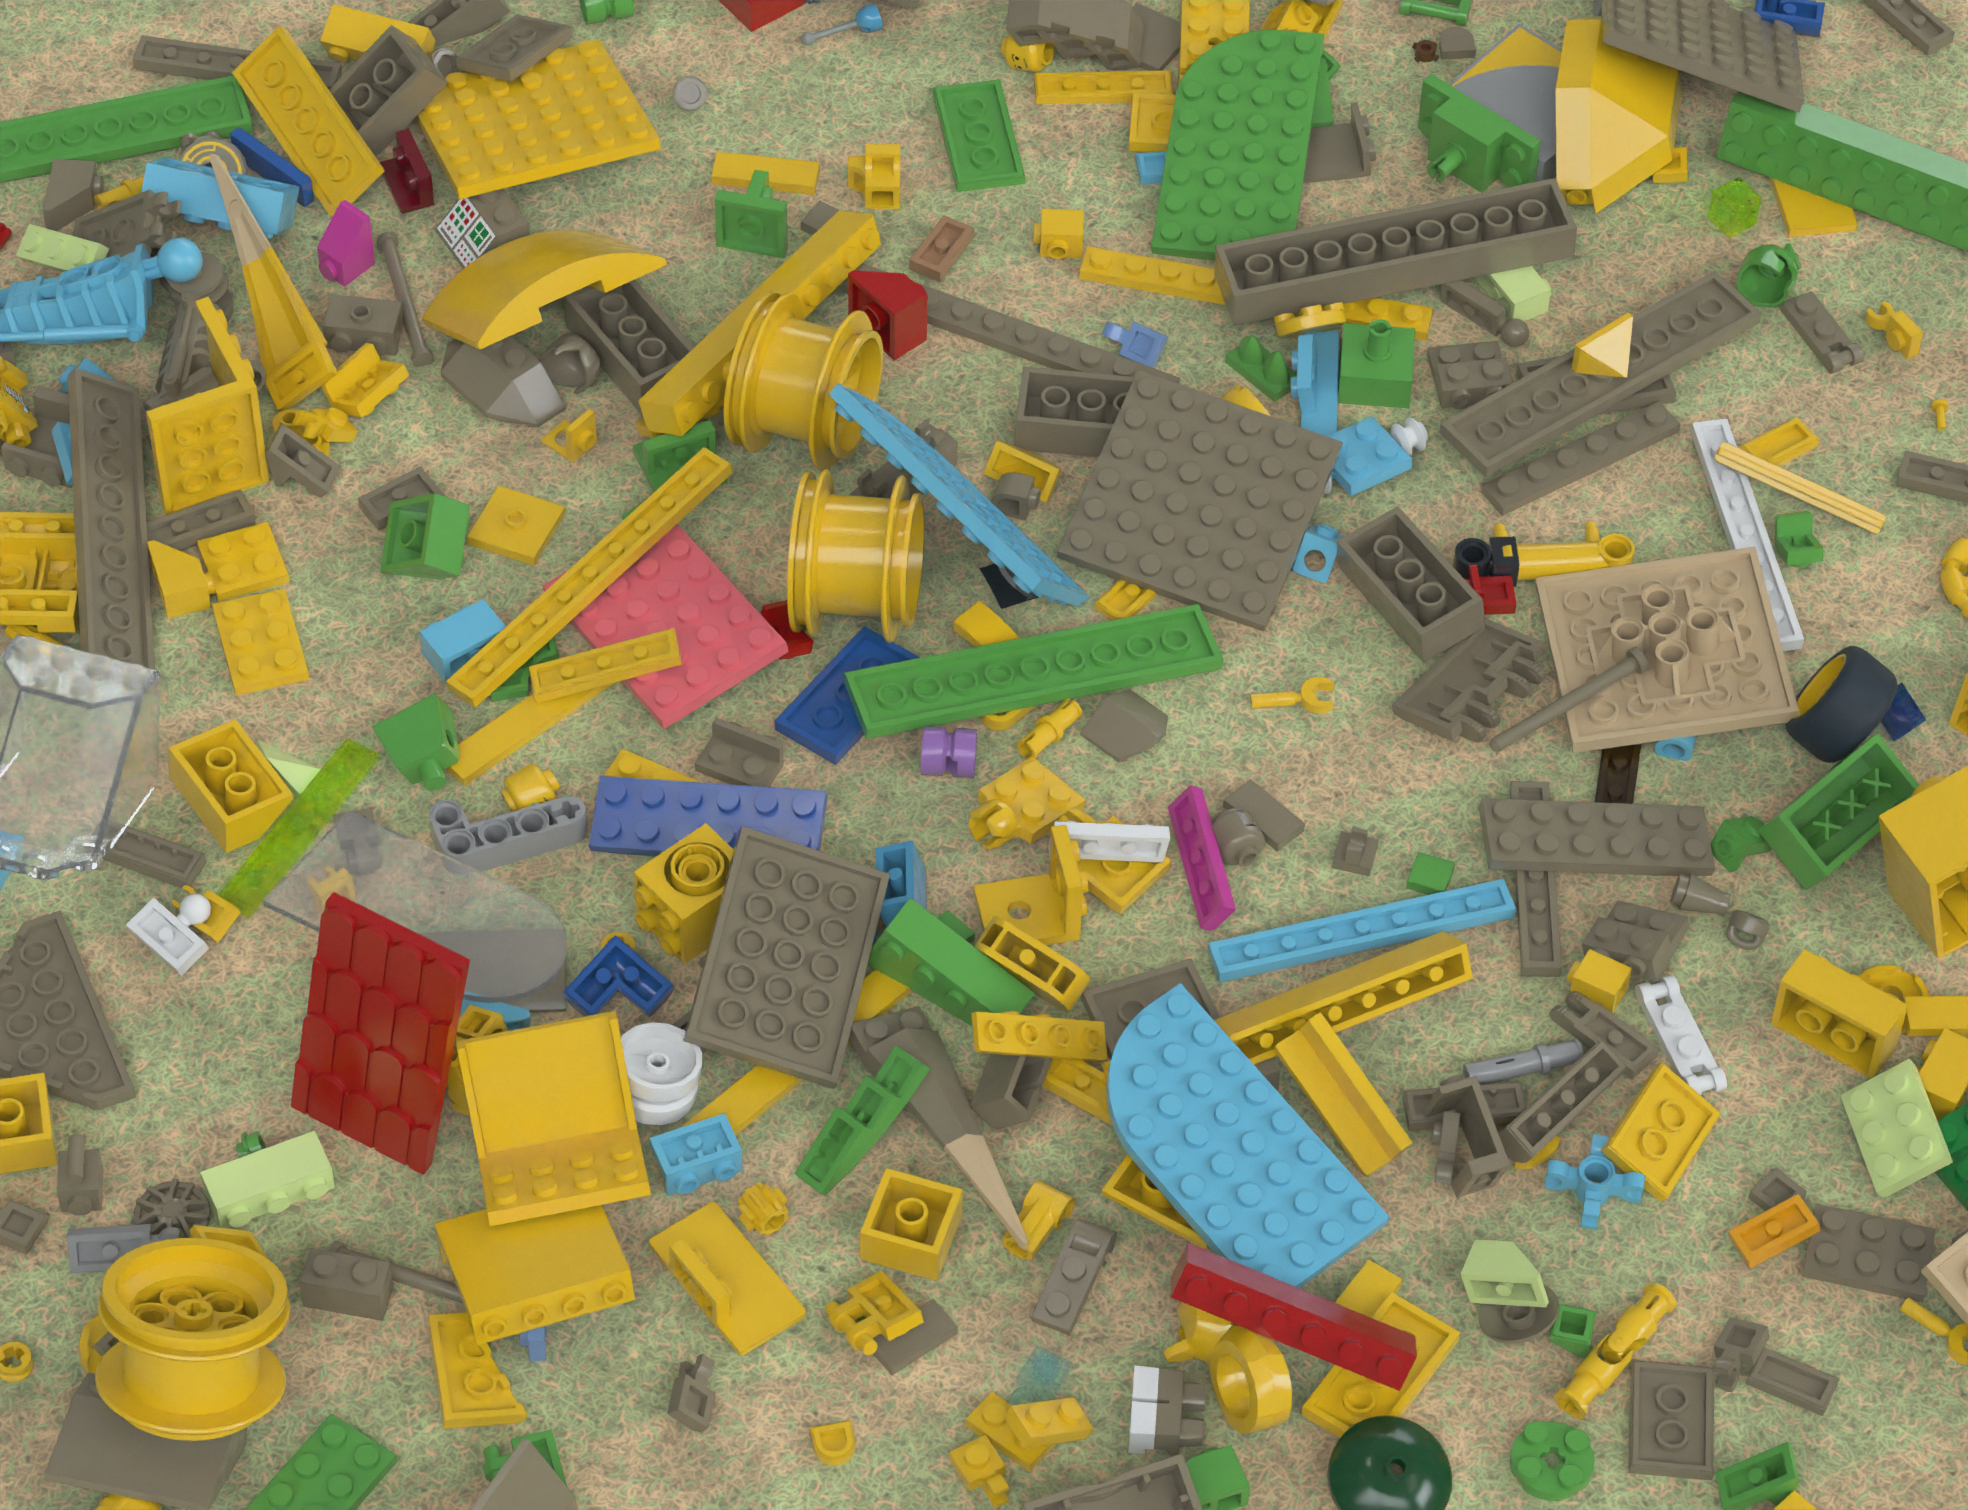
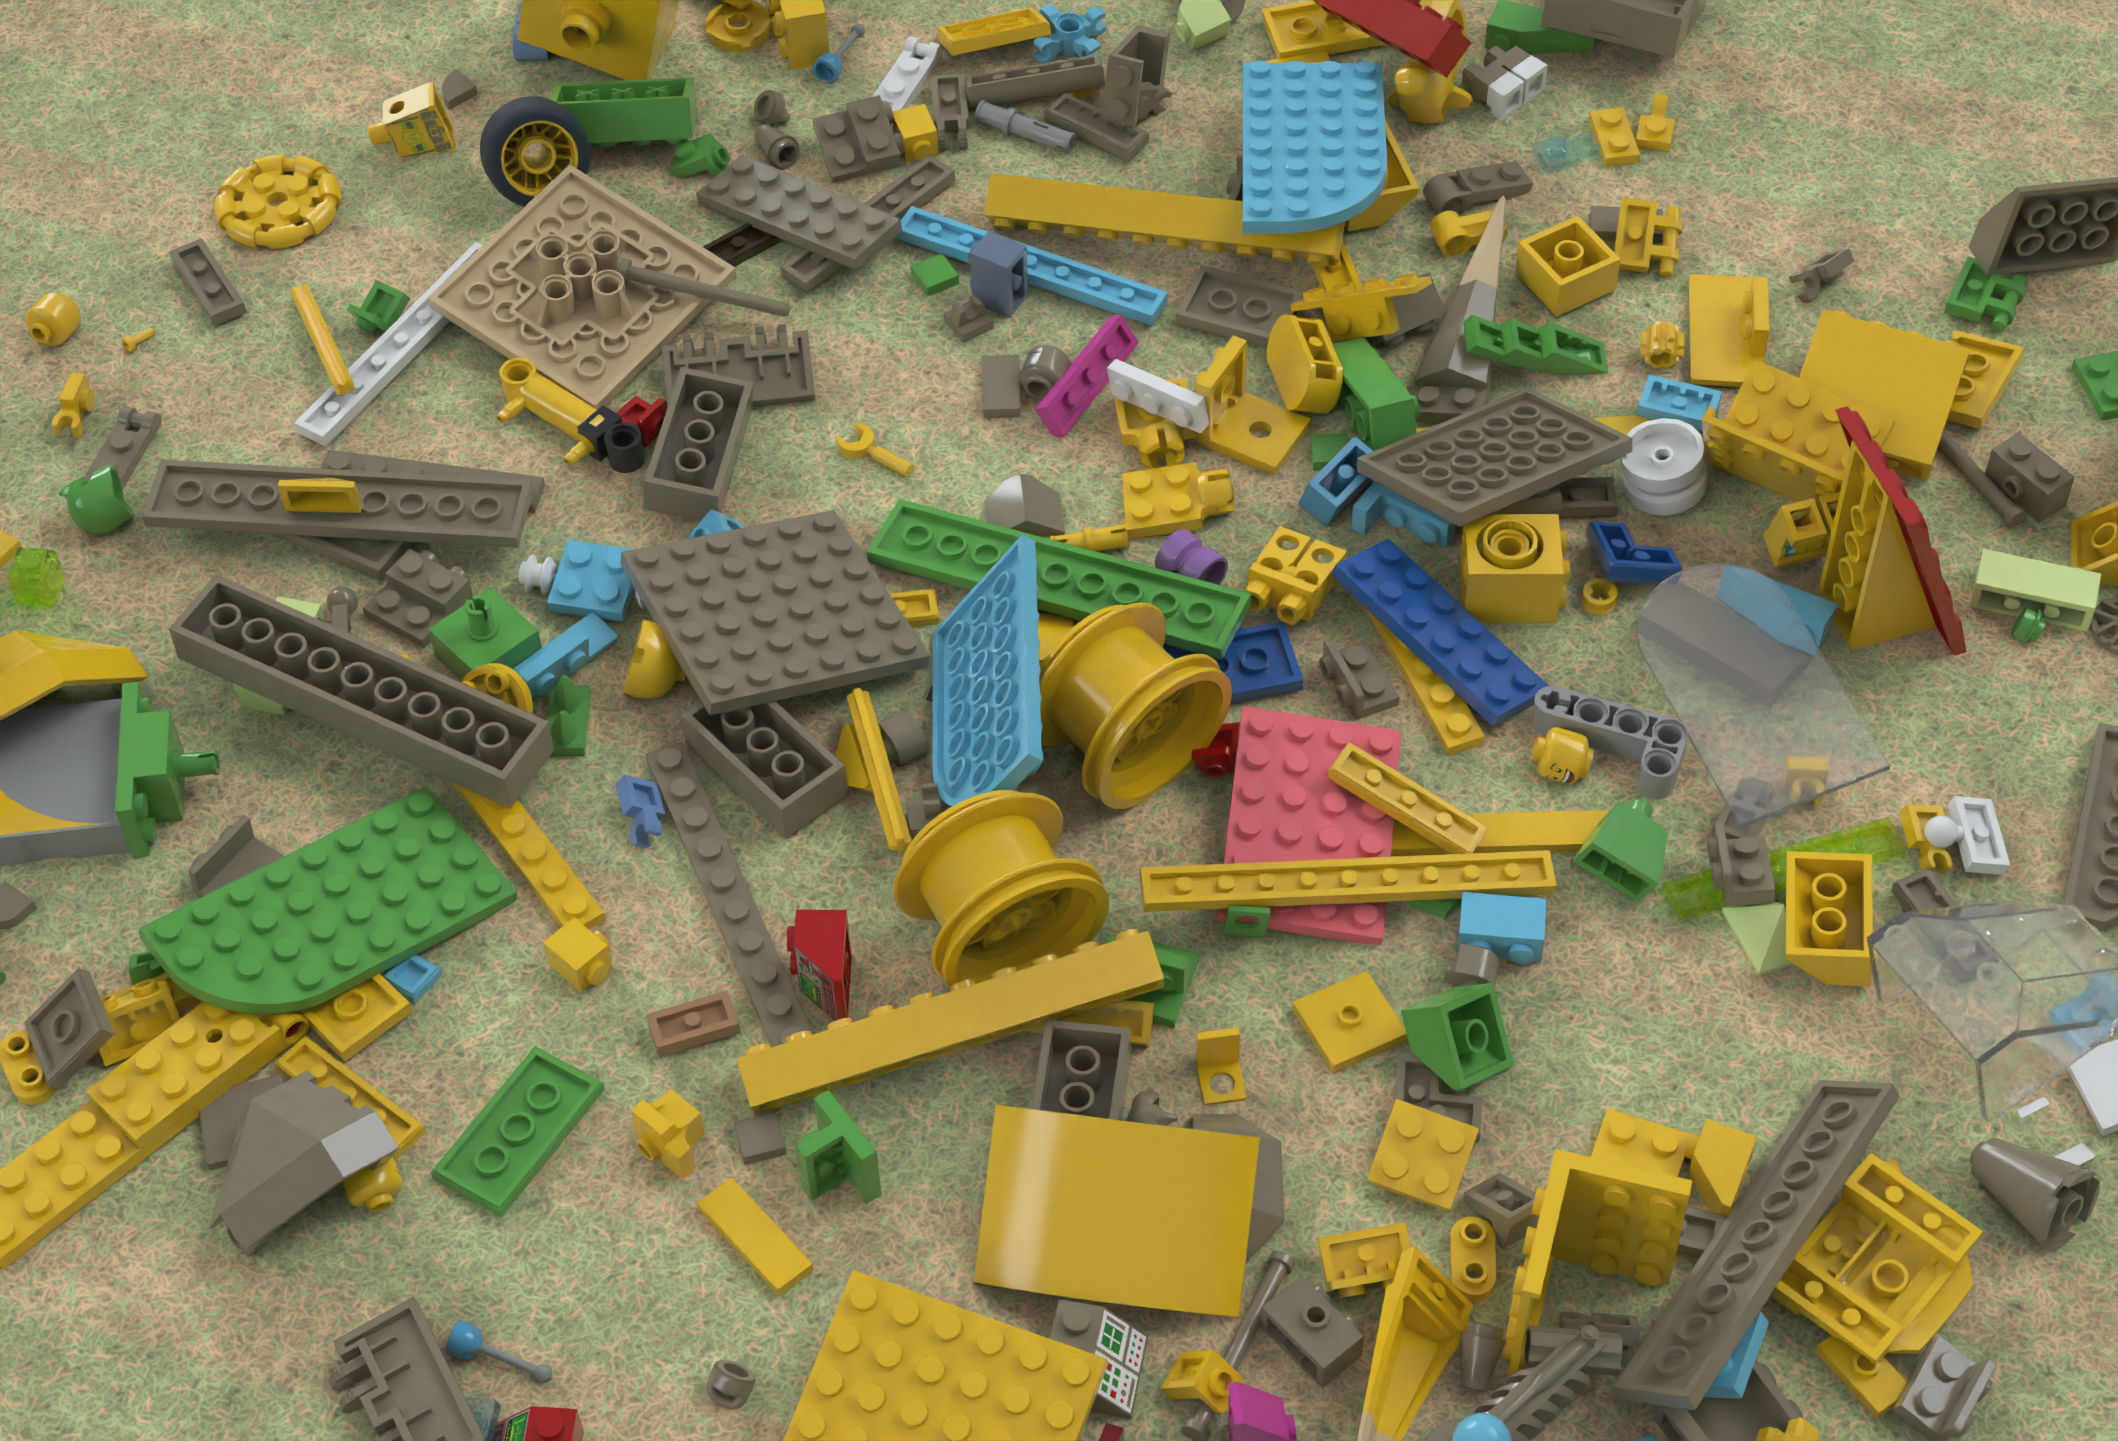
camera: 135 degrees left, 0 degrees up
(260, 642) = (1683, 1065): yellow plate -> none
(323, 777) = (1741, 868): none -> dark tan bracket
(329, 423) = (1442, 1234): yellow plate -> none
(384, 461) = (1422, 1155): none -> yellow plate
(407, 255) = (1201, 1376): none -> yellow bracket
(455, 594) = (1472, 967): none -> dark tan plate
(833, 1442) = (1742, 198): yellow tile -> none
(857, 778) = (1292, 578): none -> yellow hips
(1001, 452) = (879, 770): none -> yellow axle
(1048, 1422) = (1589, 111): yellow plate -> none
(1342, 1095) = (1182, 158): yellow panel -> none
(1361, 873) = (999, 273): none -> sand blue brick
(1425, 51) = (41, 919): reddish brown piece -> none
(1759, 1006) = (831, 63): none -> dark azure hinge
(1783, 442) = (279, 393): yellow tile -> none
(1902, 714) = (475, 177): clear blue bracket -> none

